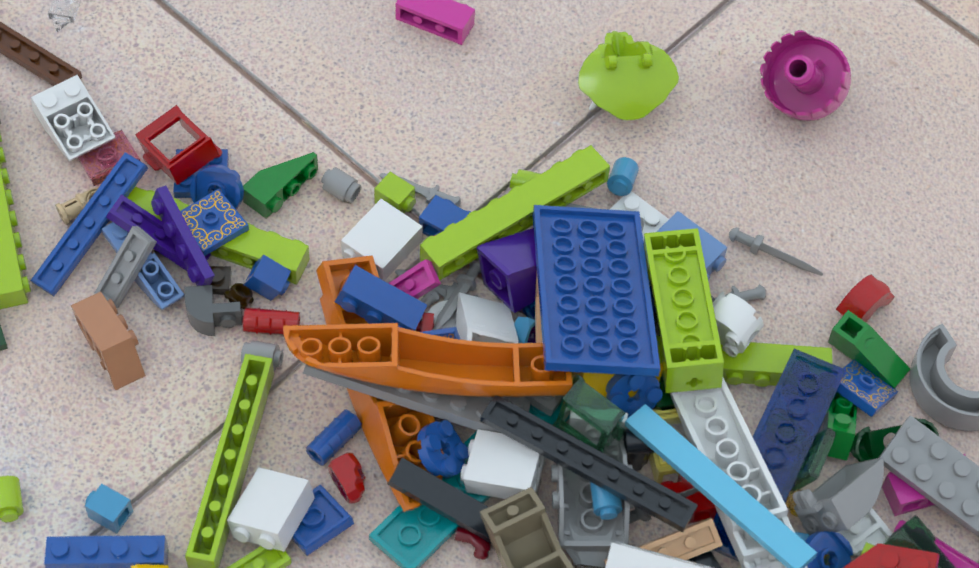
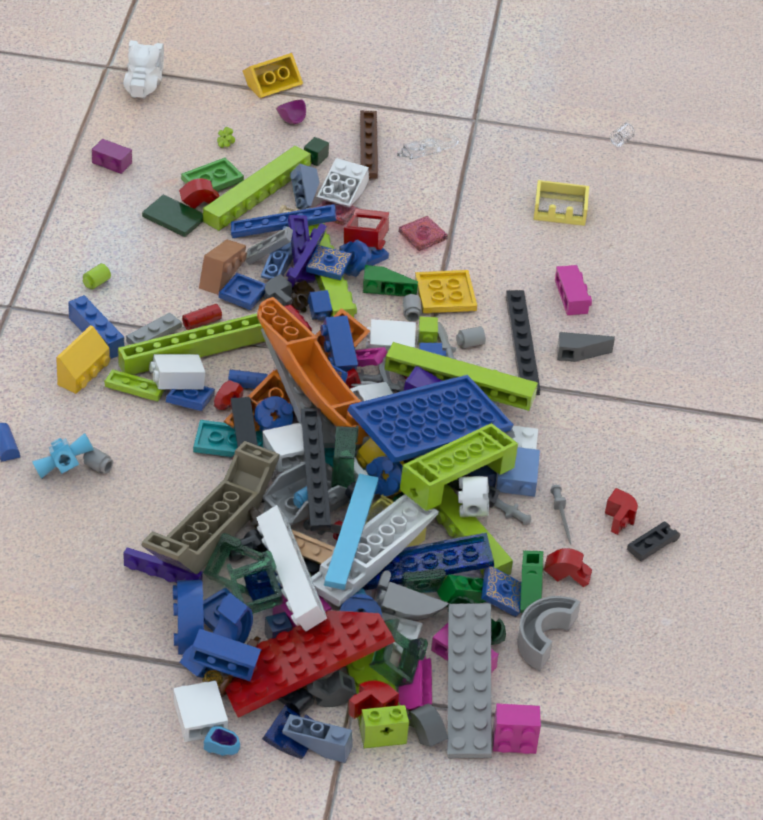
camera: 55 degrees right, 15 degrees down
(44, 162) = (305, 184): none -> sand blue slope
(108, 508) = (124, 315): dark azure brick -> none
(159, 491) = (155, 329): none -> light grey plate
(169, 344) = (243, 291): none -> blue plate
(181, 419) = (202, 317): none -> red axle
(220, 93) = (423, 233): none -> clear pink plate
(339, 133) = (446, 291): none -> yellow plate
(437, 158) = (471, 337): none -> light grey brick
(476, 114) = (522, 336): none -> black plate
(527, 71) = (579, 346): none -> dark grey slope
(622, 176) = (541, 418): dark azure brick -> none
(627, 76) = (606, 379): lime animal -> none
(805, 76) = (698, 459): dark pink piece -> none
(809, 189) = (623, 509): none -> red brick
(870, 196) = (653, 541): none -> black plate

